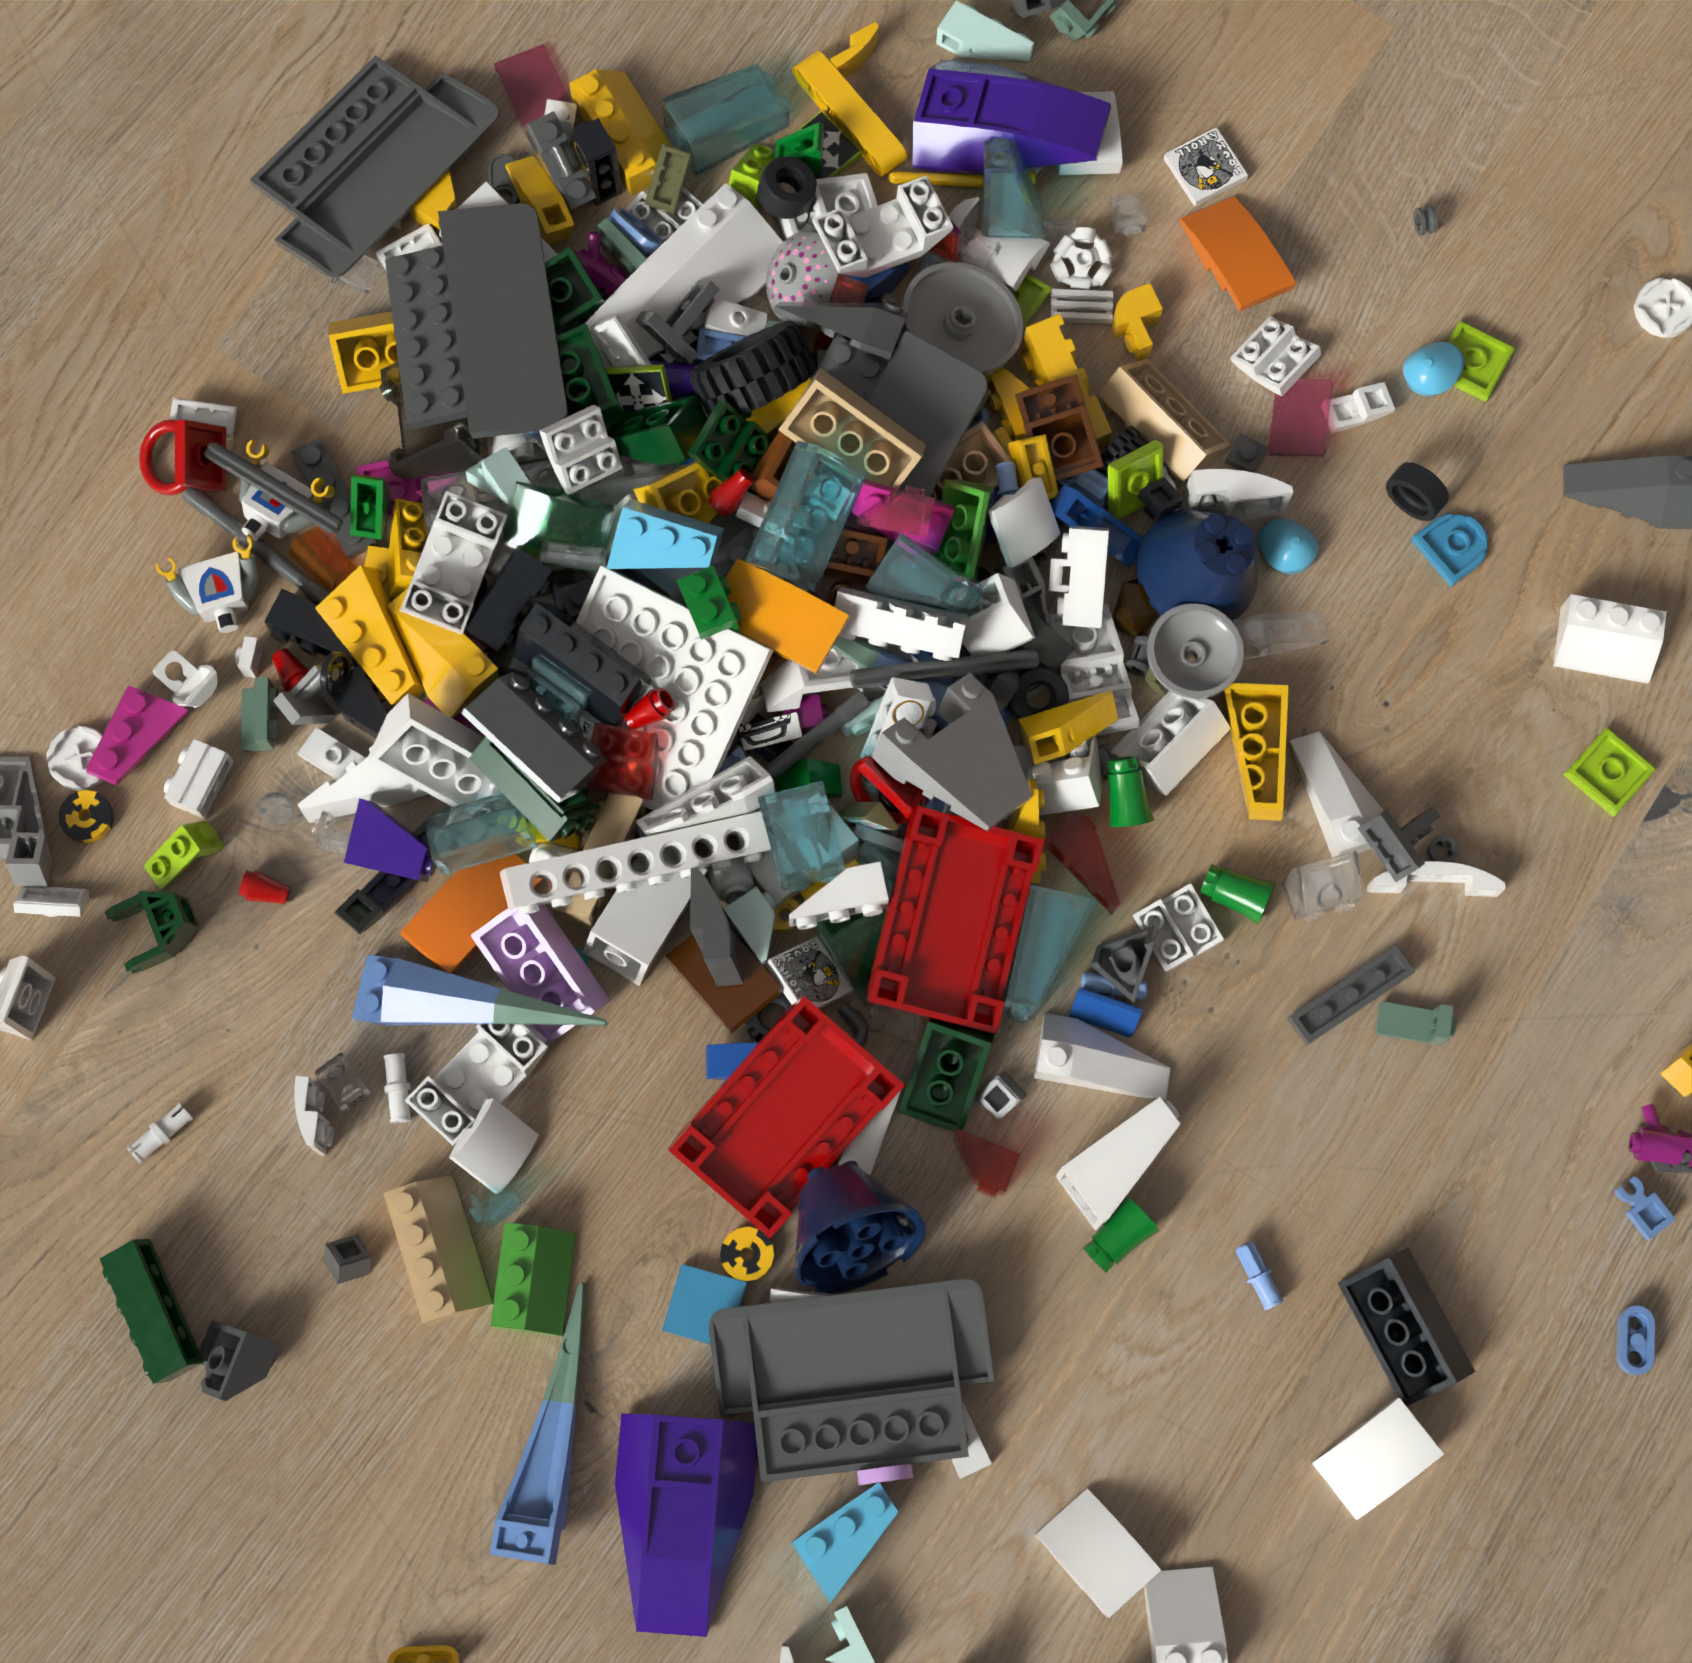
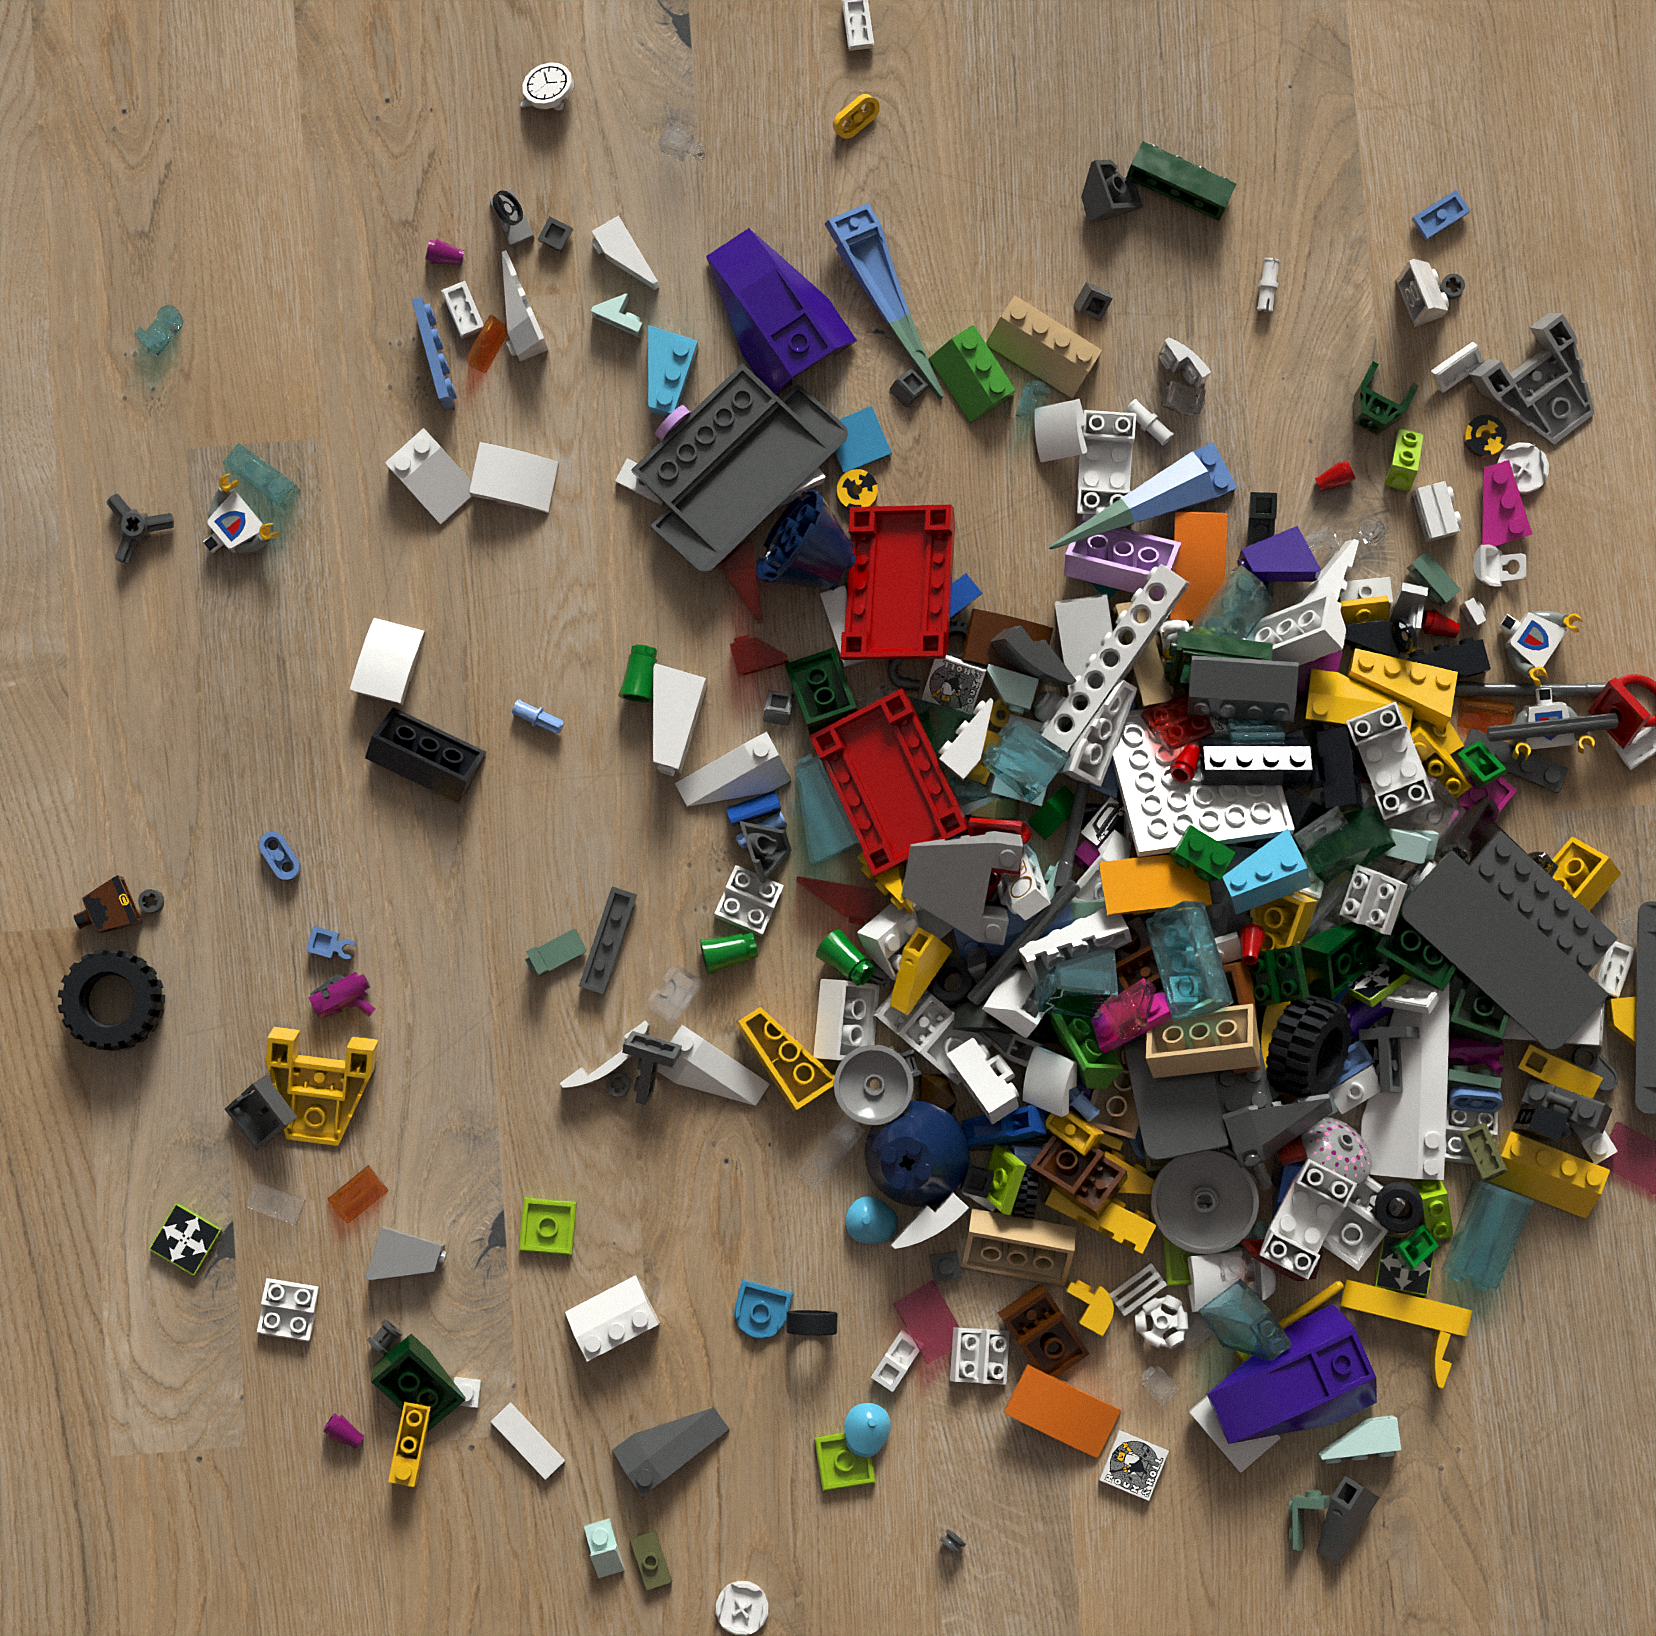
camera: 145 degrees right, 10 degrees up
(347, 737) = (1365, 610): none -> yellow plate
(607, 1321) = (908, 387): none -> dark grey slope
(936, 1254) = (741, 573): none -> clear red slope
(1200, 332) = (1043, 1332): none -> reddish brown slope

